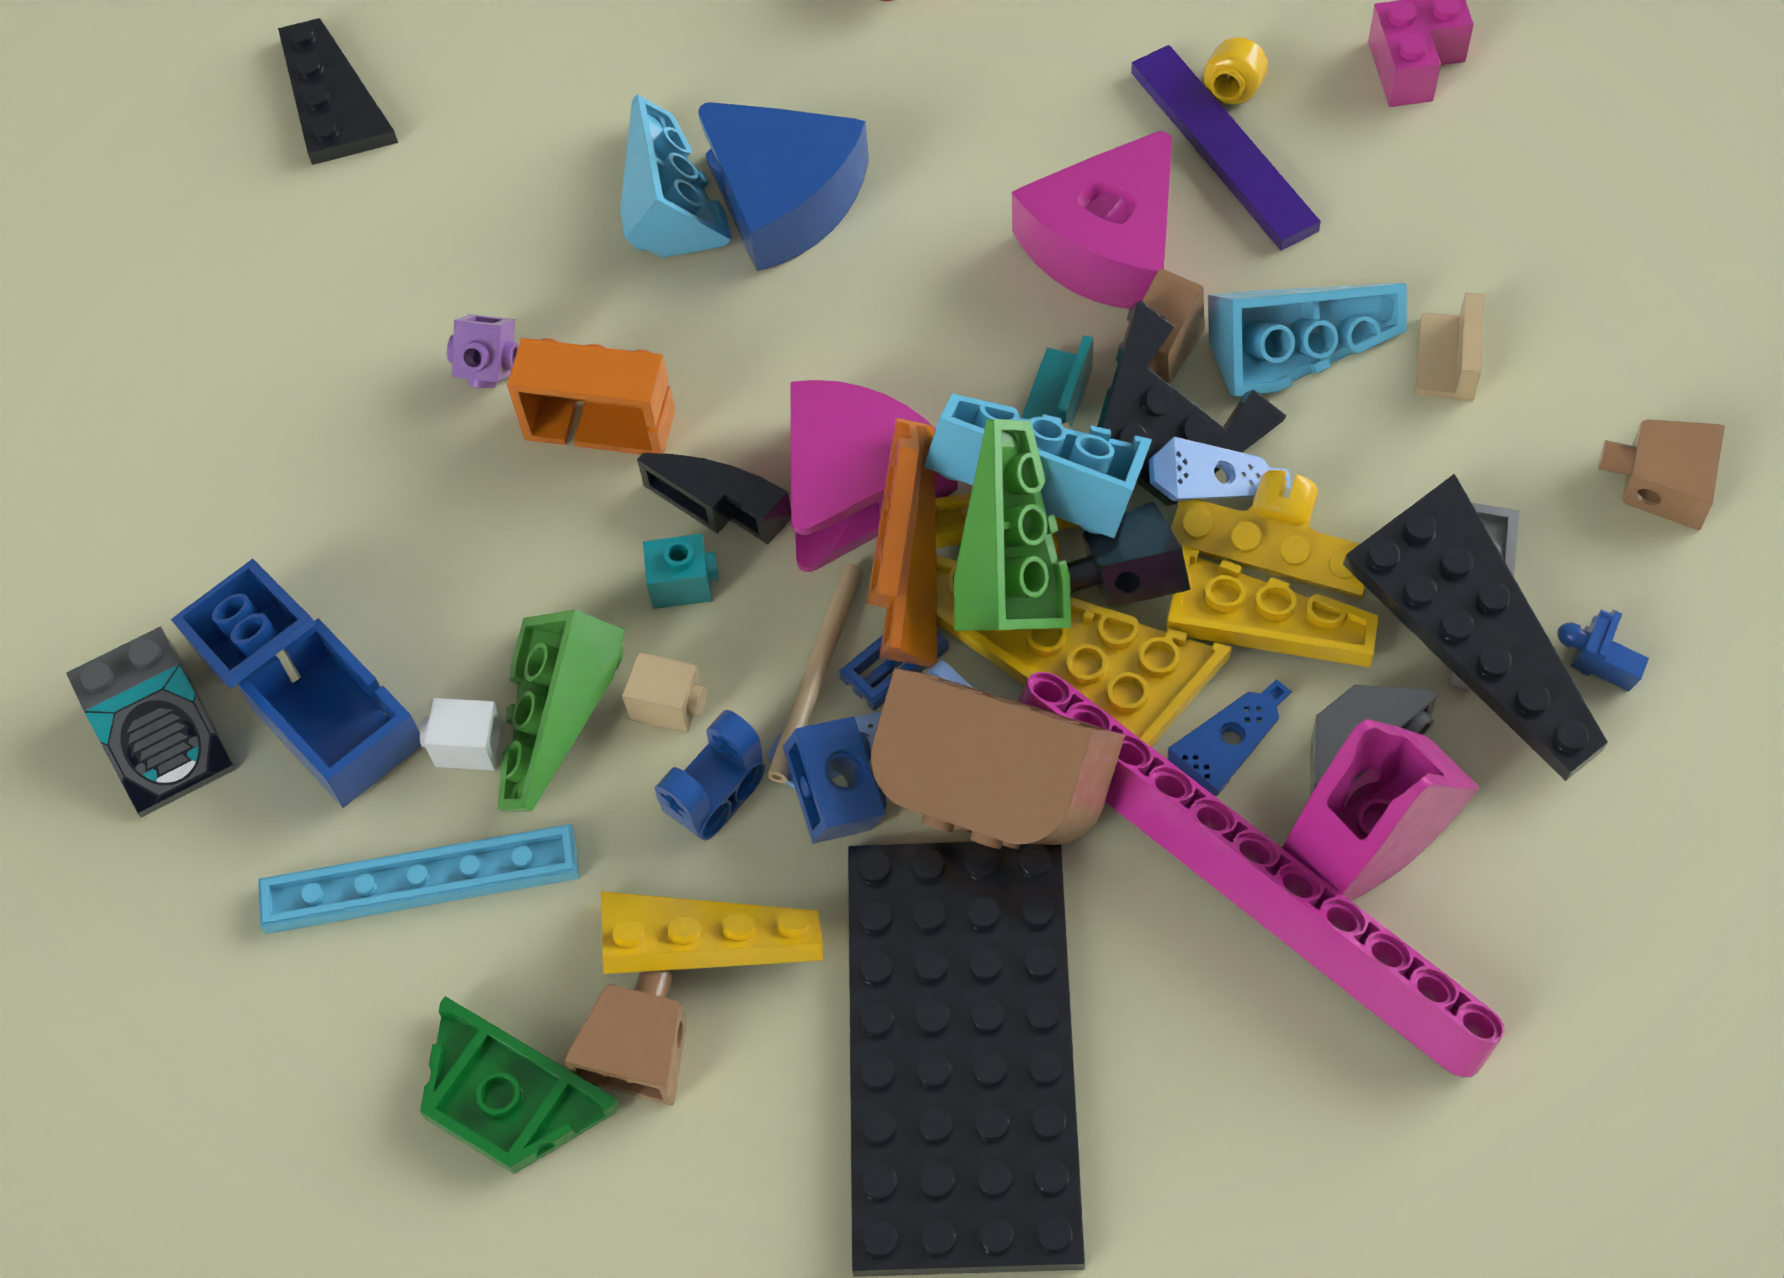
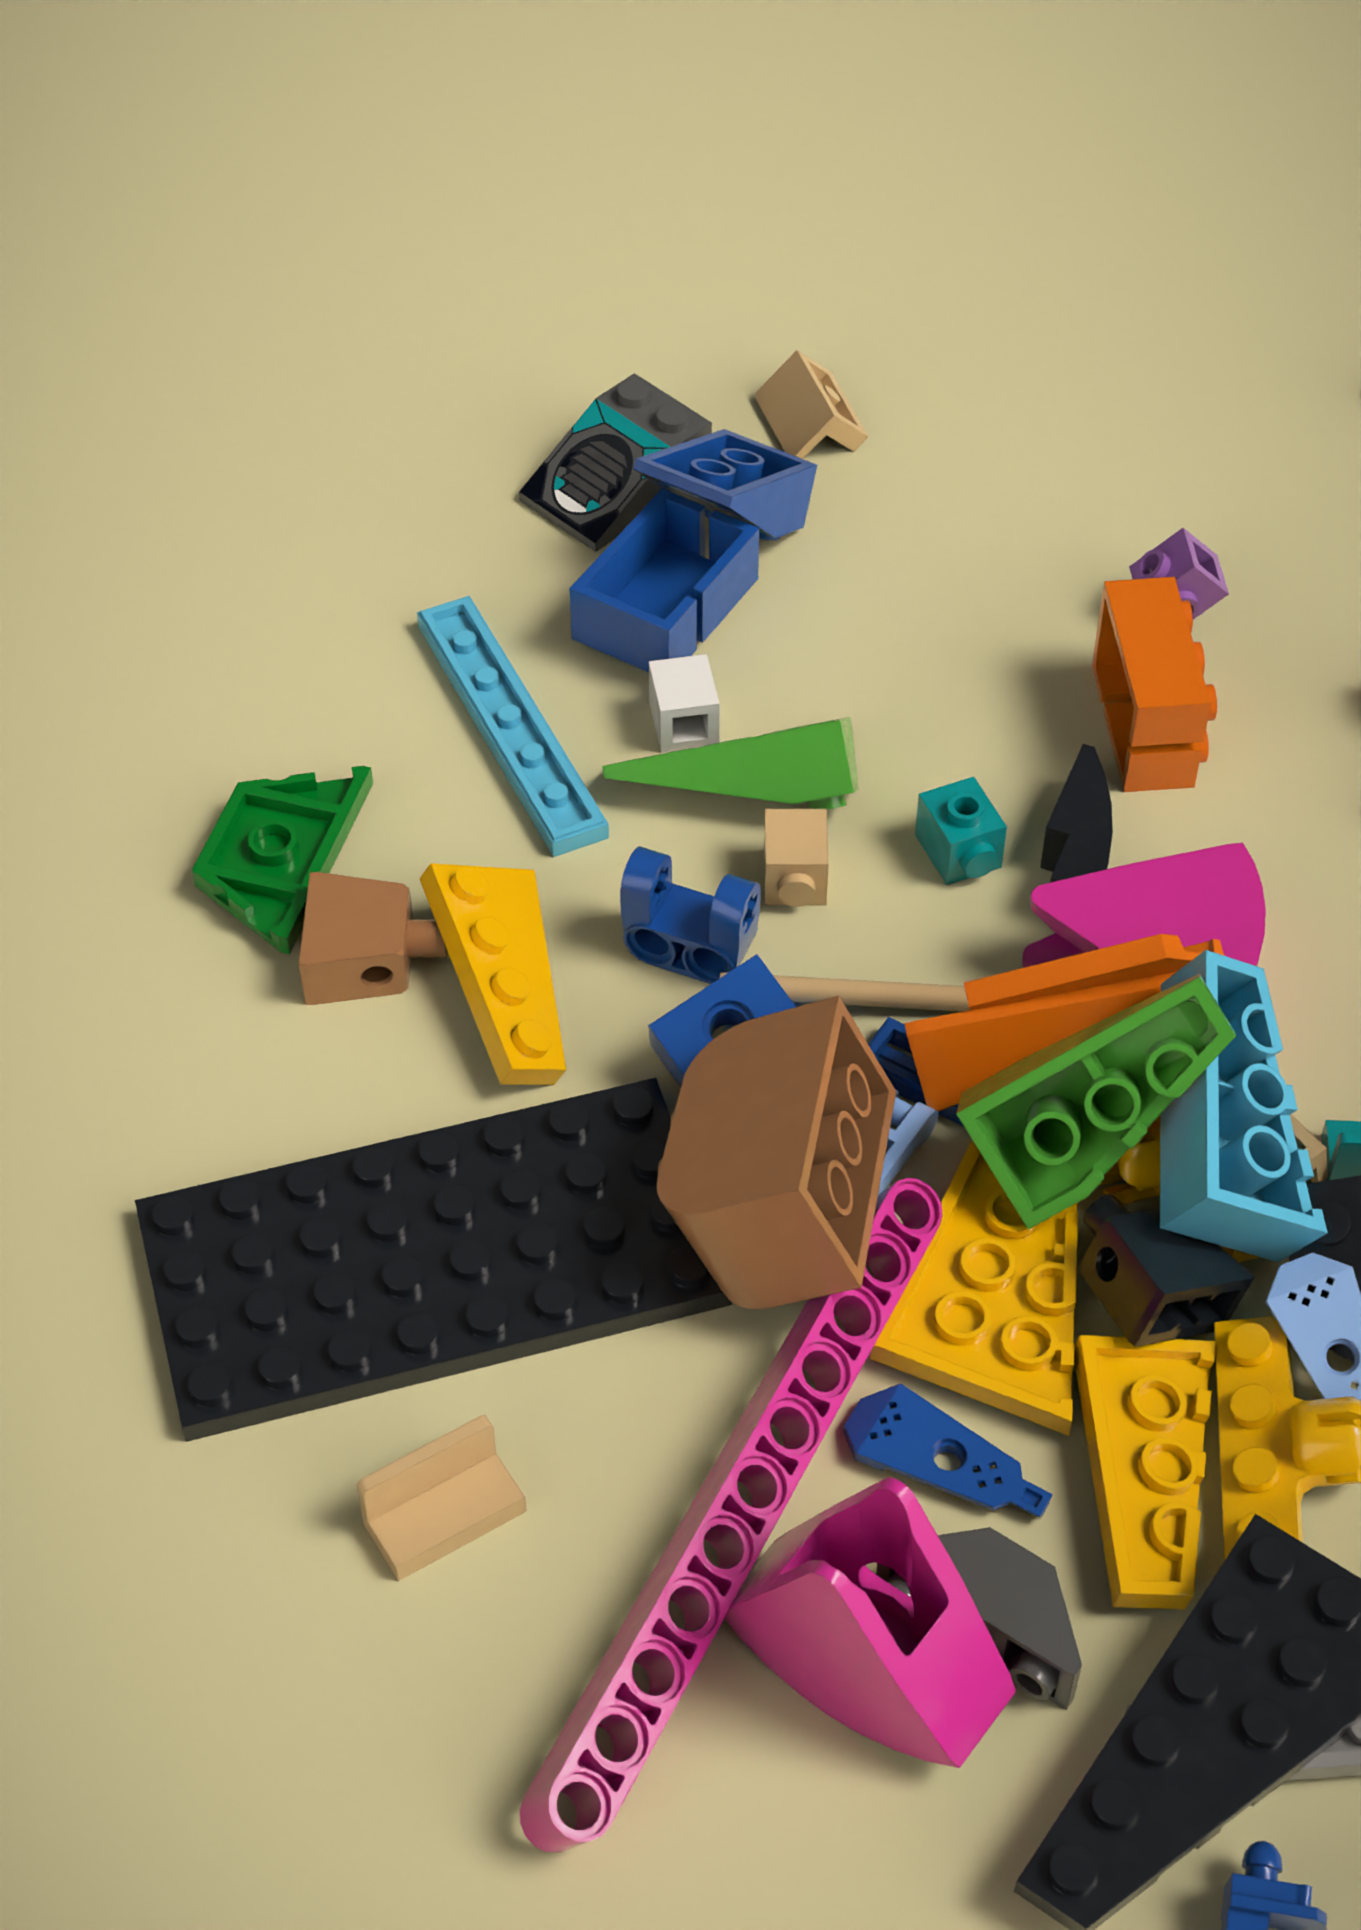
camera: 70 degrees right, 10 degrees down
(147, 559) = (806, 405): none -> tan panel
(1196, 1082) = (439, 1498): none -> tan panel

